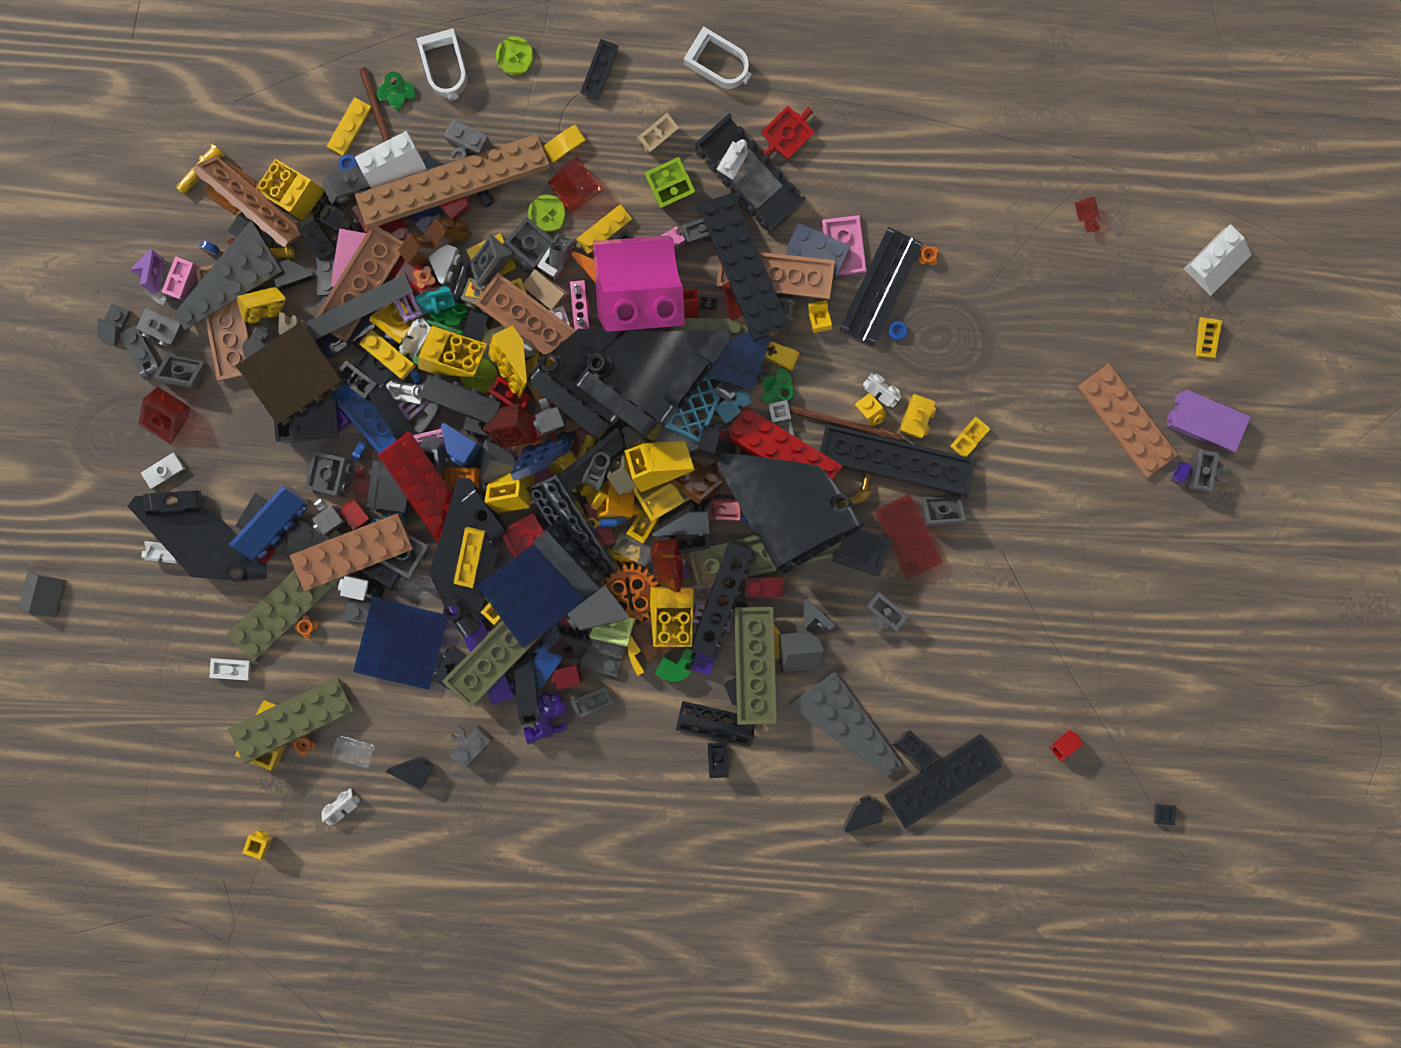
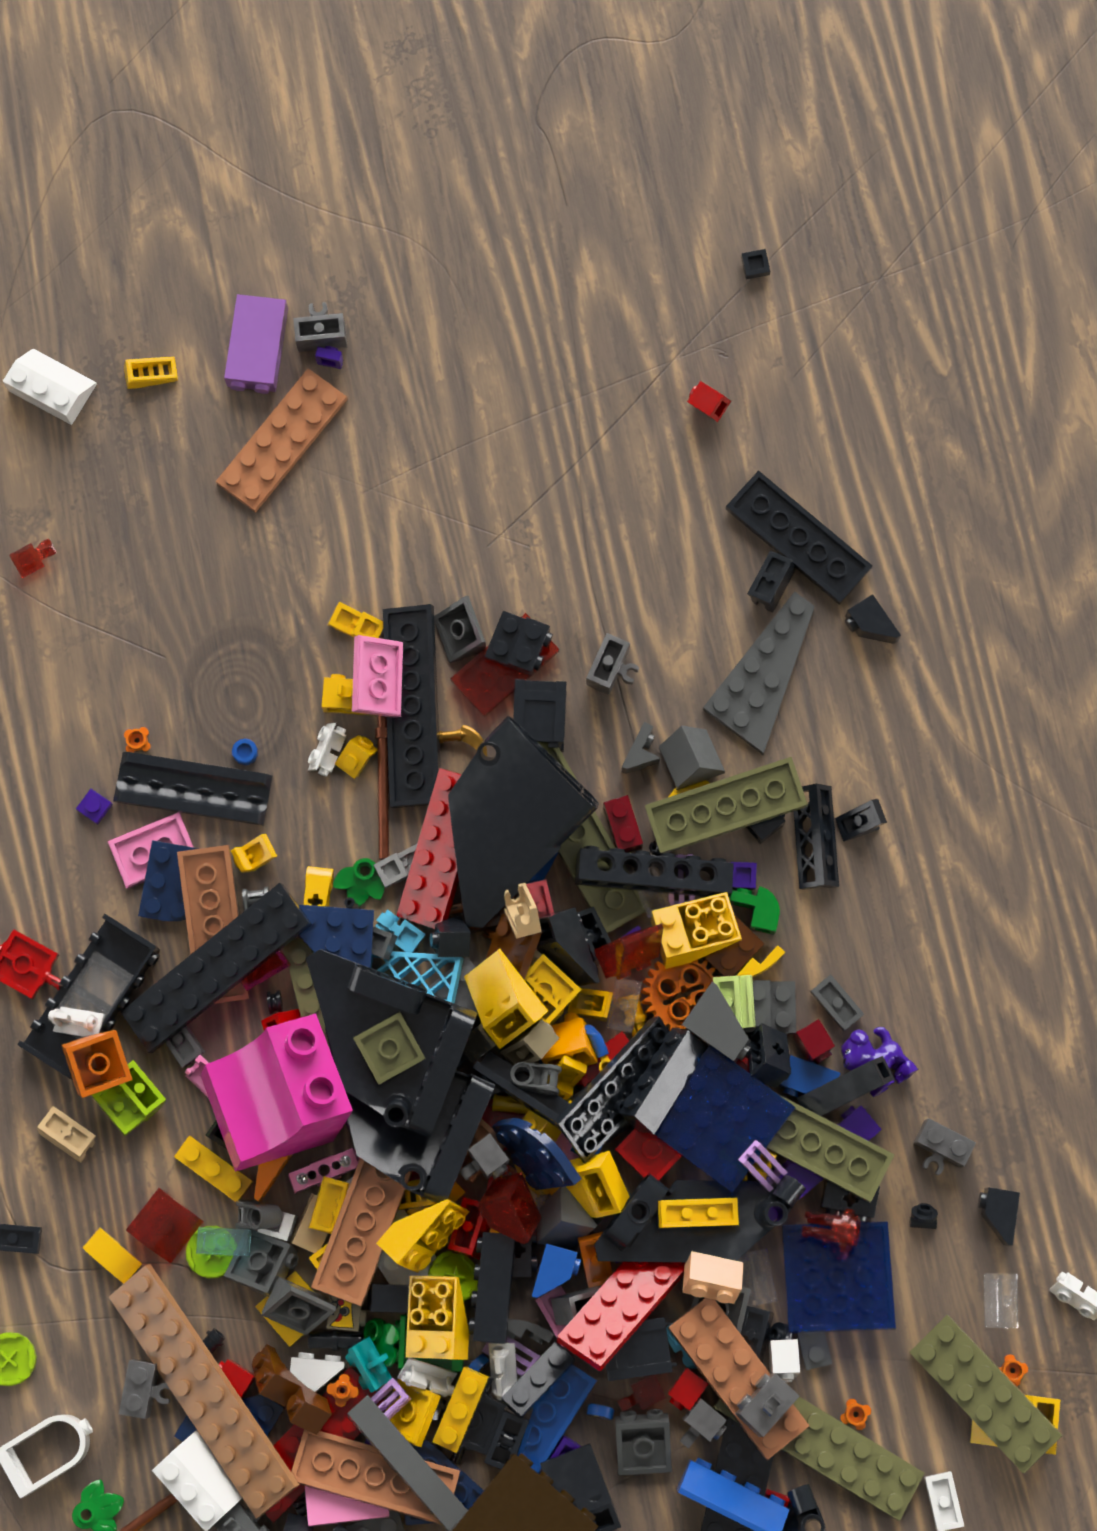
camera: 100 degrees left, 10 degrees down
(324, 564) = (766, 1404): none -> flat silver brick
(421, 554) = (712, 1277): none -> light nougat brick
(425, 716) = (923, 1216): none -> black plate
(430, 657) = (844, 1228): none -> clear red piece
(480, 617) = (773, 1176): none -> lavender tile
(550, 222) = (223, 1241): none -> clear light blue plate
(553, 301) = (328, 1204): none -> yellow plate
(646, 371) = (389, 1048): none -> olive plate
(698, 164) = (96, 1063): none -> orange slope
(716, 493) = (522, 913): none -> tan hinge
(888, 212) = (94, 806): none -> dark purple plate
(920, 550) = (519, 643): none -> black plate
(923, 440) = (377, 676): none -> bright pink tile

